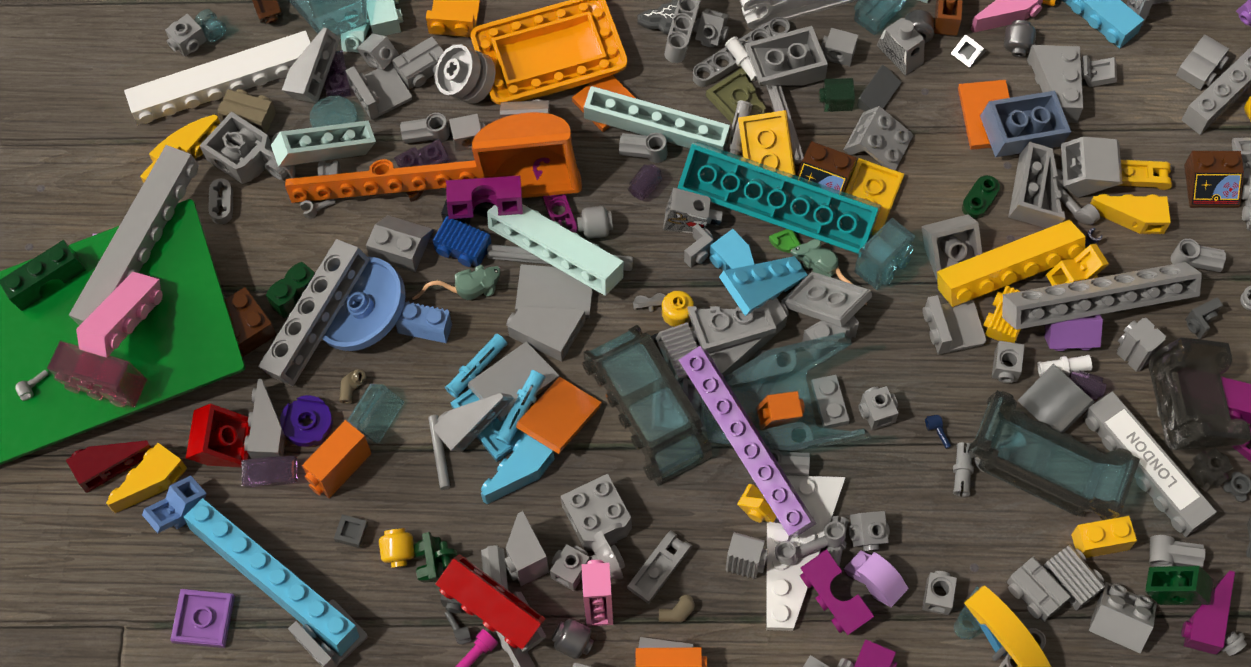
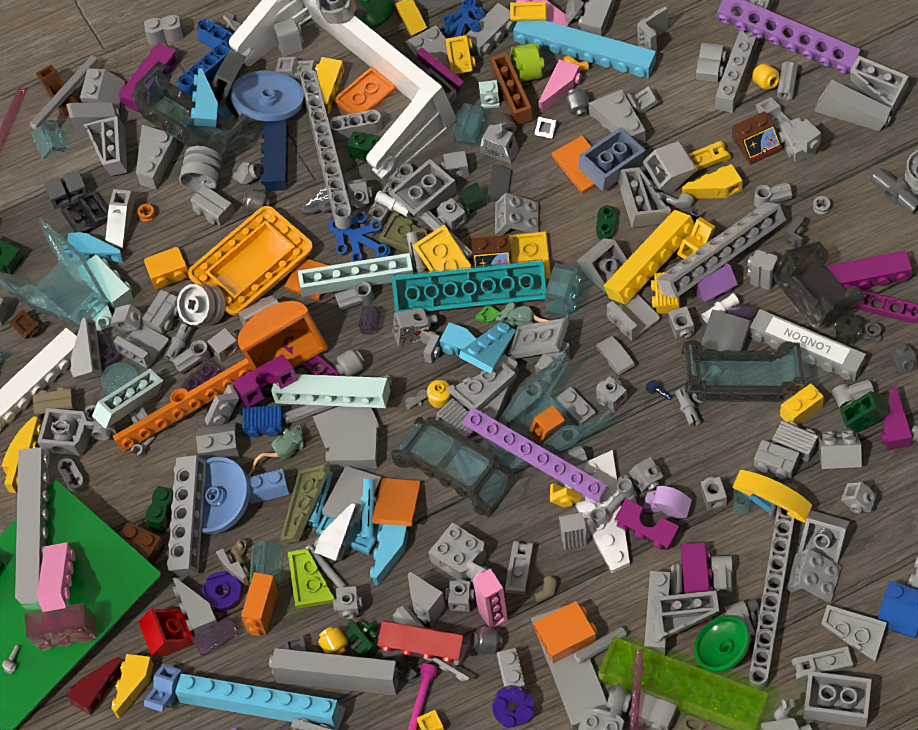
camera: 20 degrees left, 5 degrees down
(334, 400) = (233, 568): none -> light grey slope
(376, 586) = (334, 671): none -> light grey brick
(408, 458) = (307, 582): none -> lime wing
(420, 105) = (178, 342): none -> light grey pin
(423, 204) = (222, 407): none -> light grey bracket
(437, 508) = (347, 602): none -> light grey brick
(455, 358) = (304, 496): none -> olive wing
(683, 77) = (357, 236): none -> blue plant
(804, 102) = (451, 214): none -> light grey brick
(908, 362) = (615, 355): none -> light grey slope

